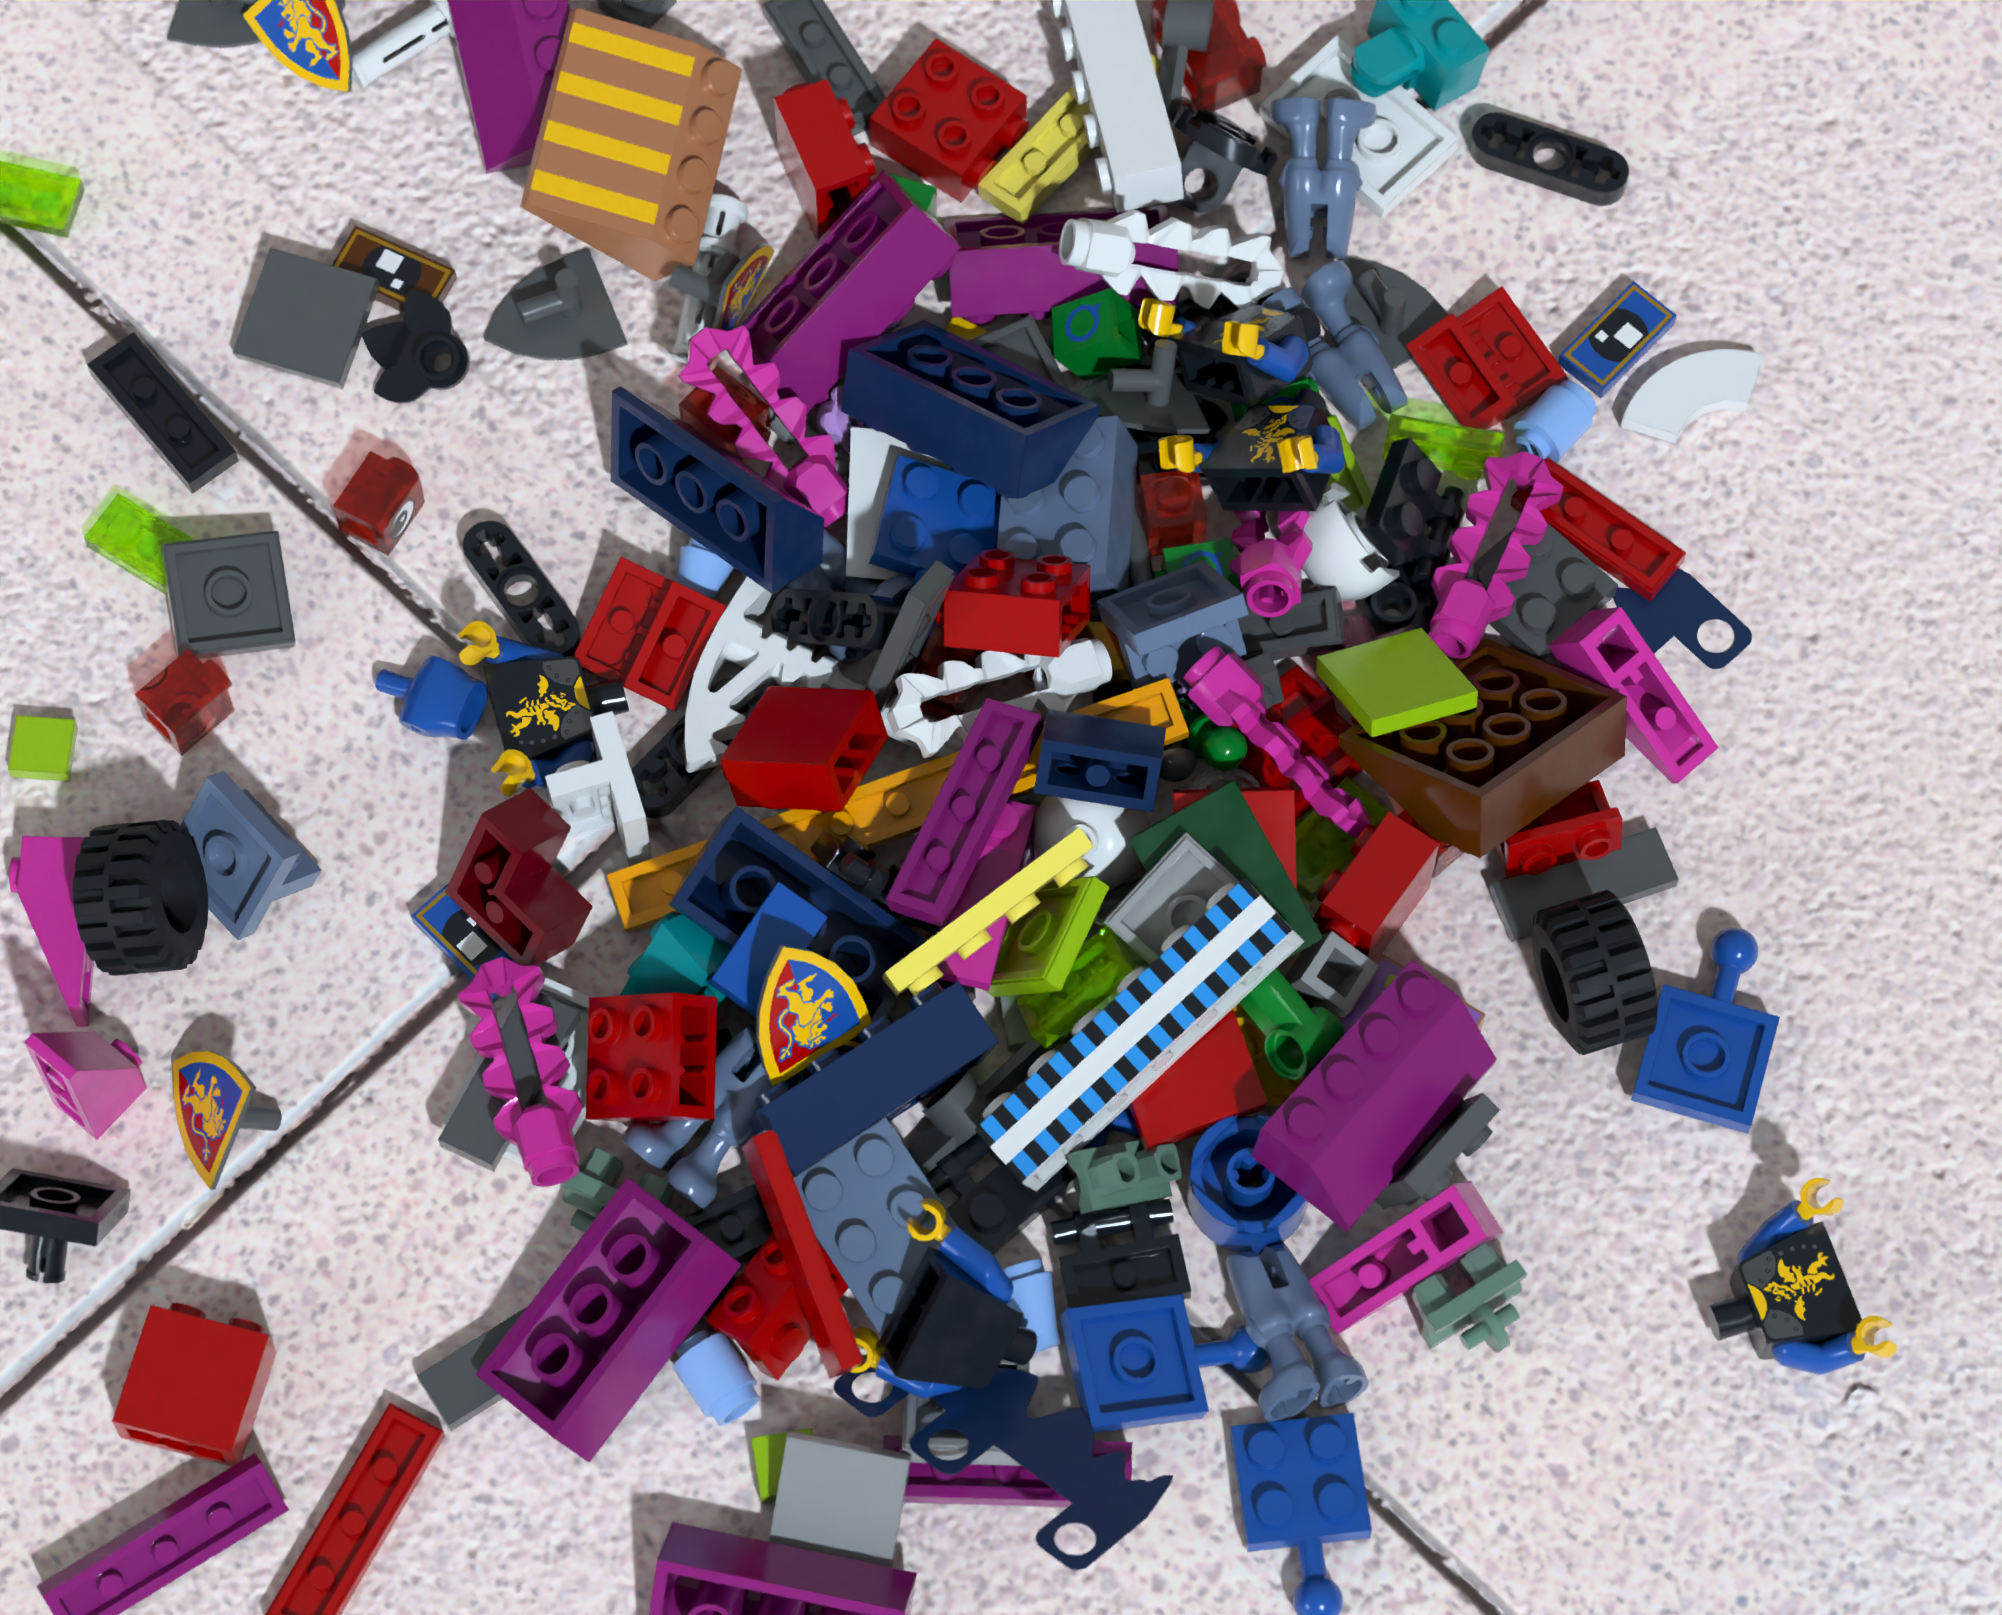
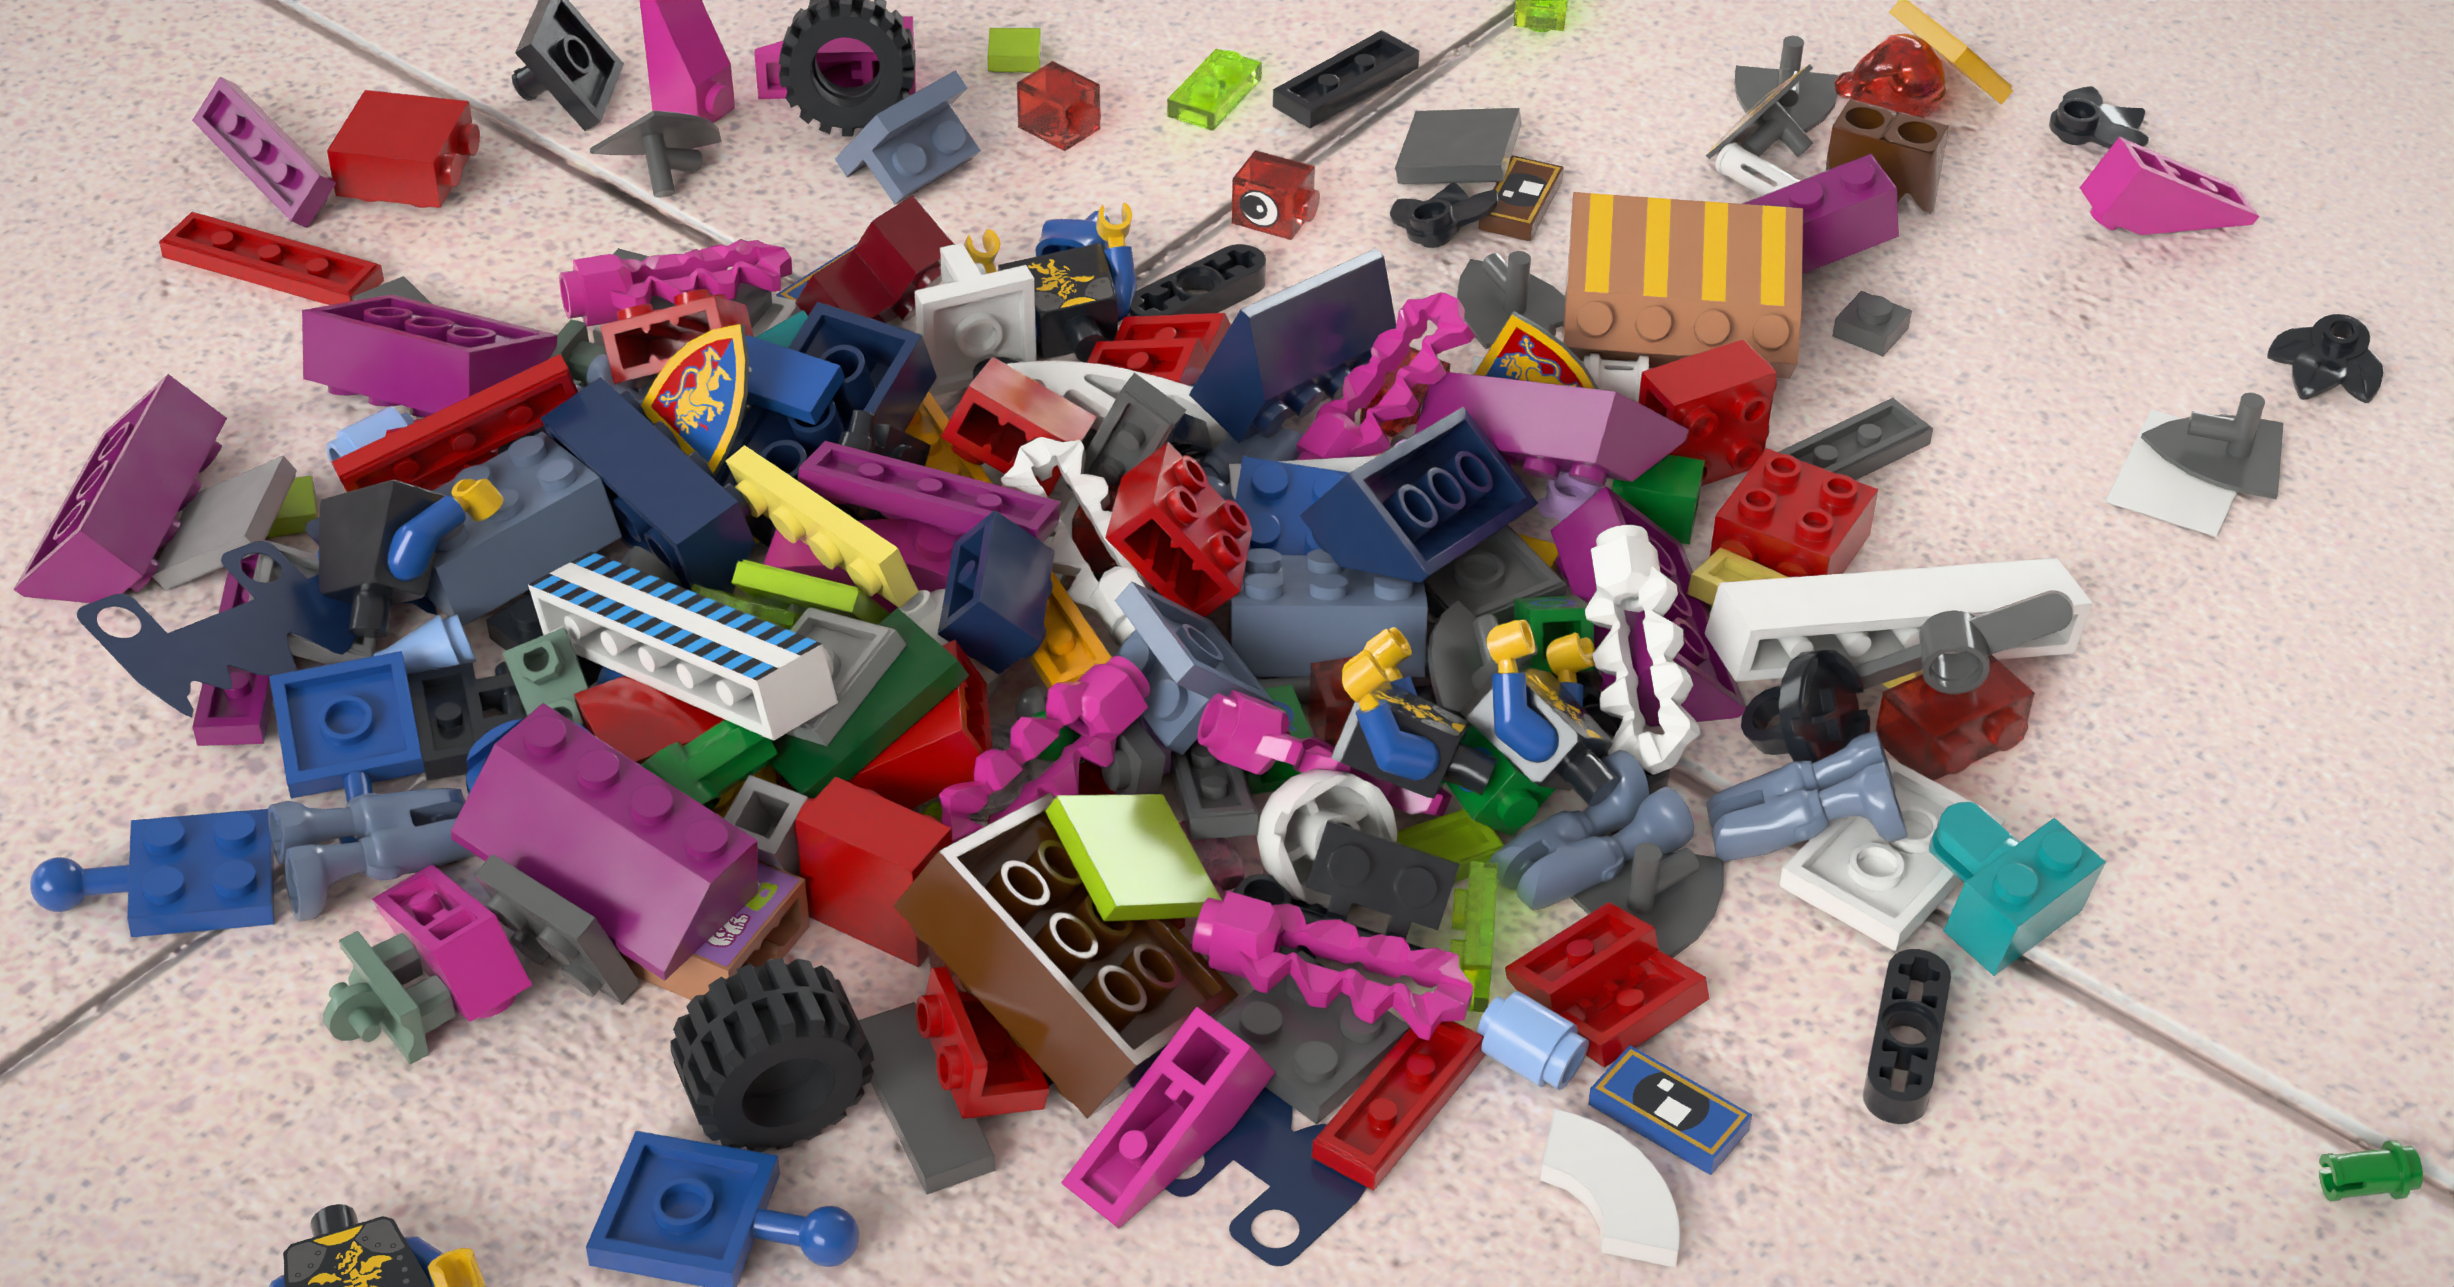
camera: 85 degrees right, 25 degrees down
(228, 595) = (1166, 120): dark grey tile -> none

